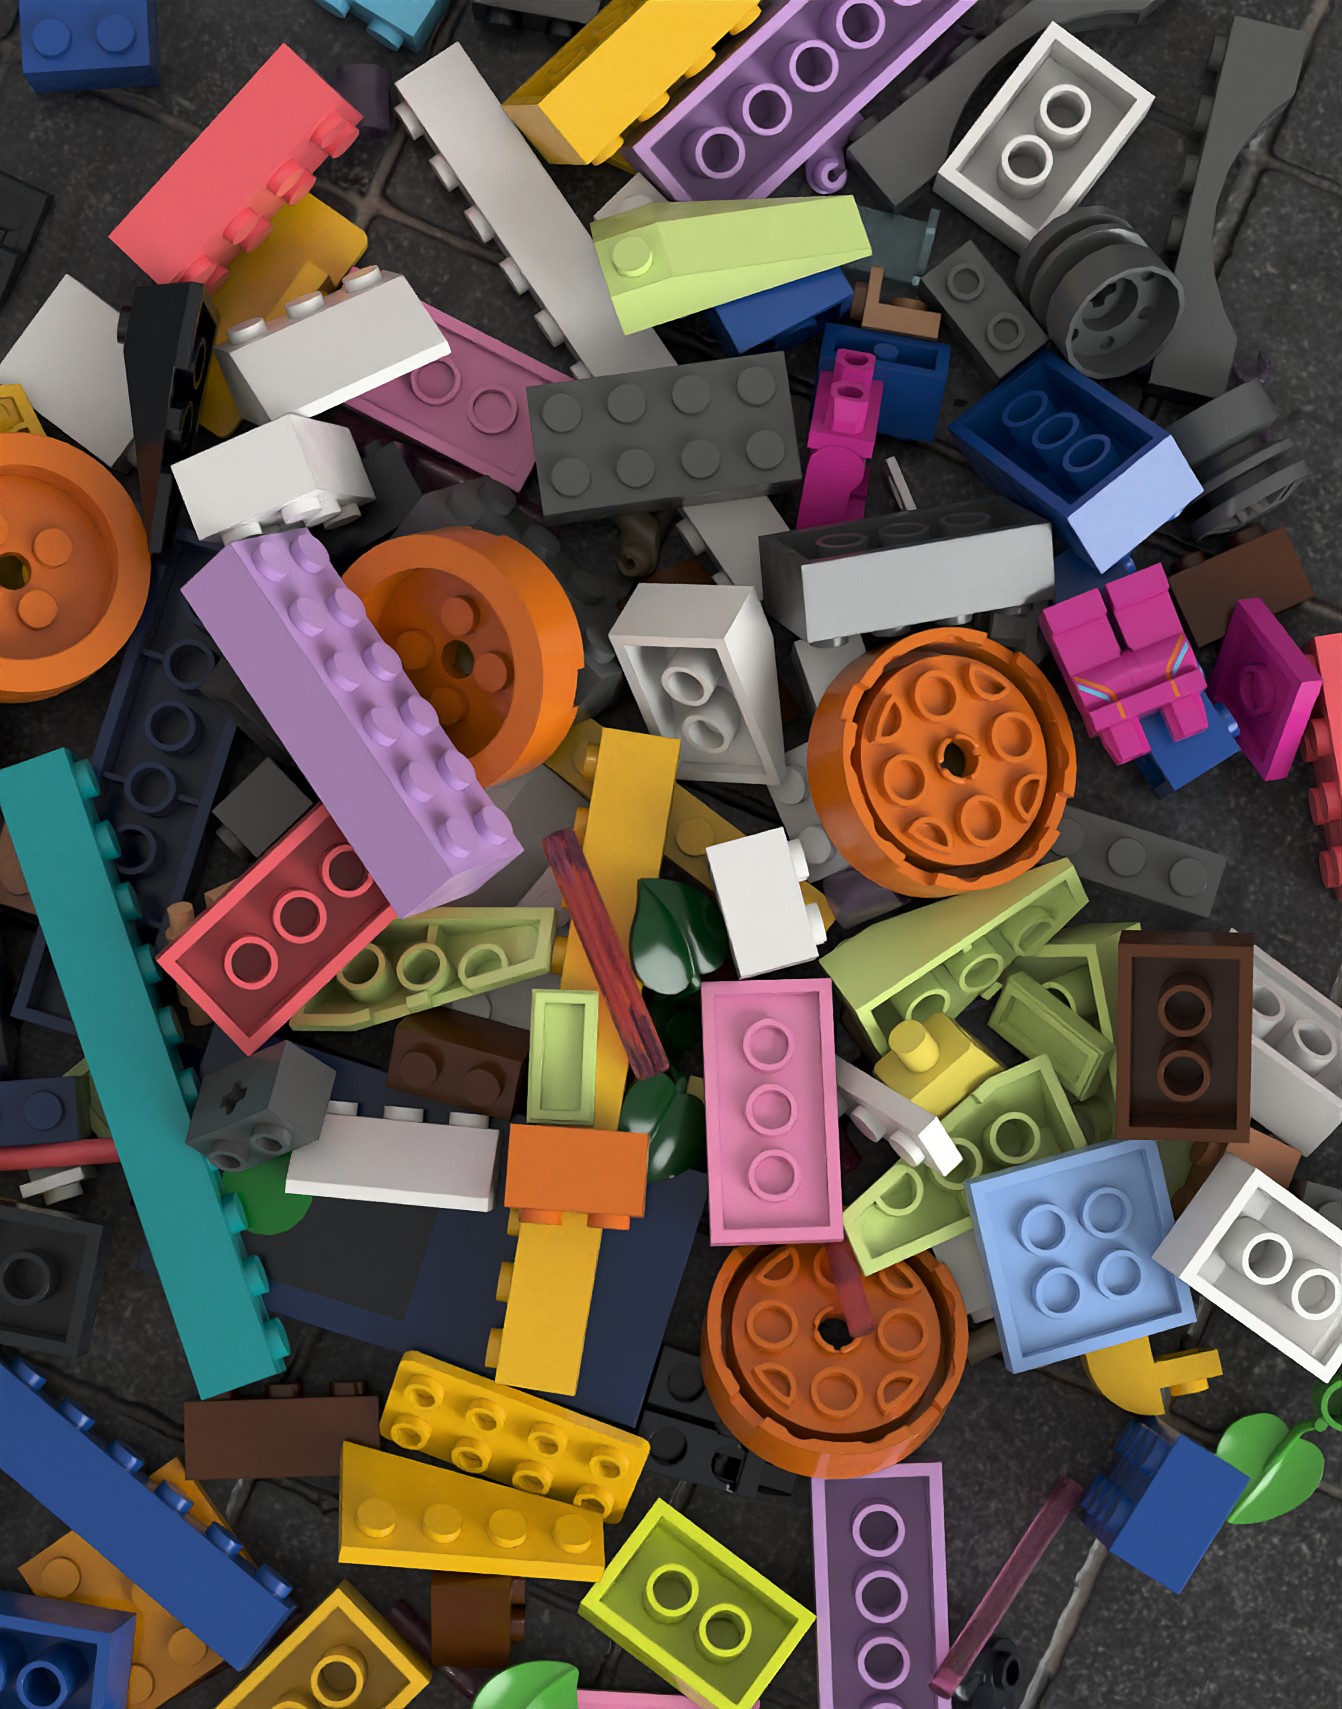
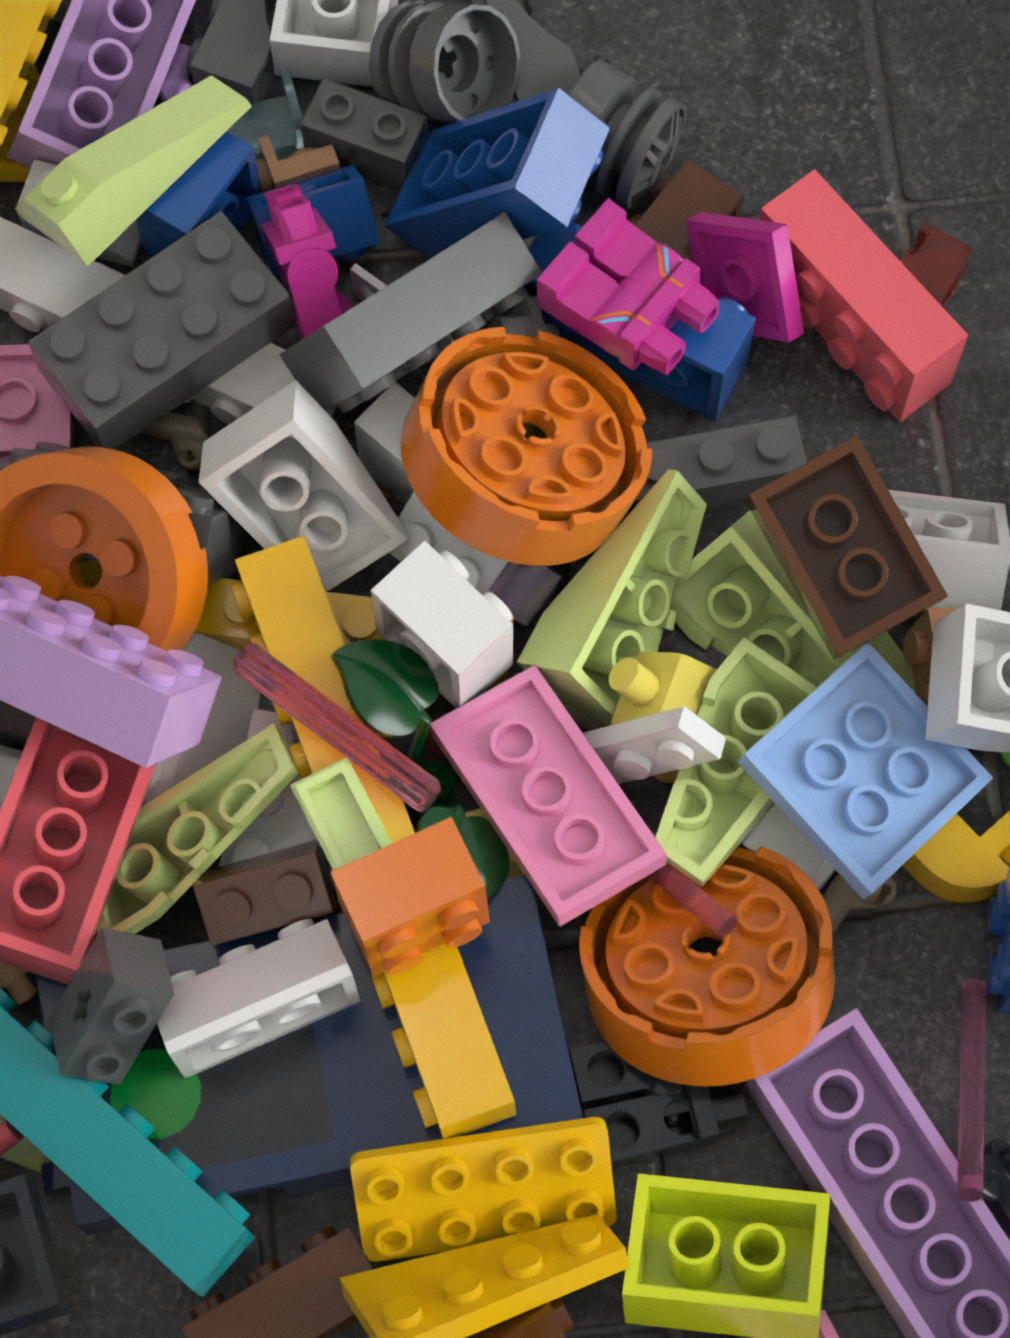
camera: 30 degrees left, 15 degrees down
(1043, 1024) = (717, 624): yellowish green tile -> none

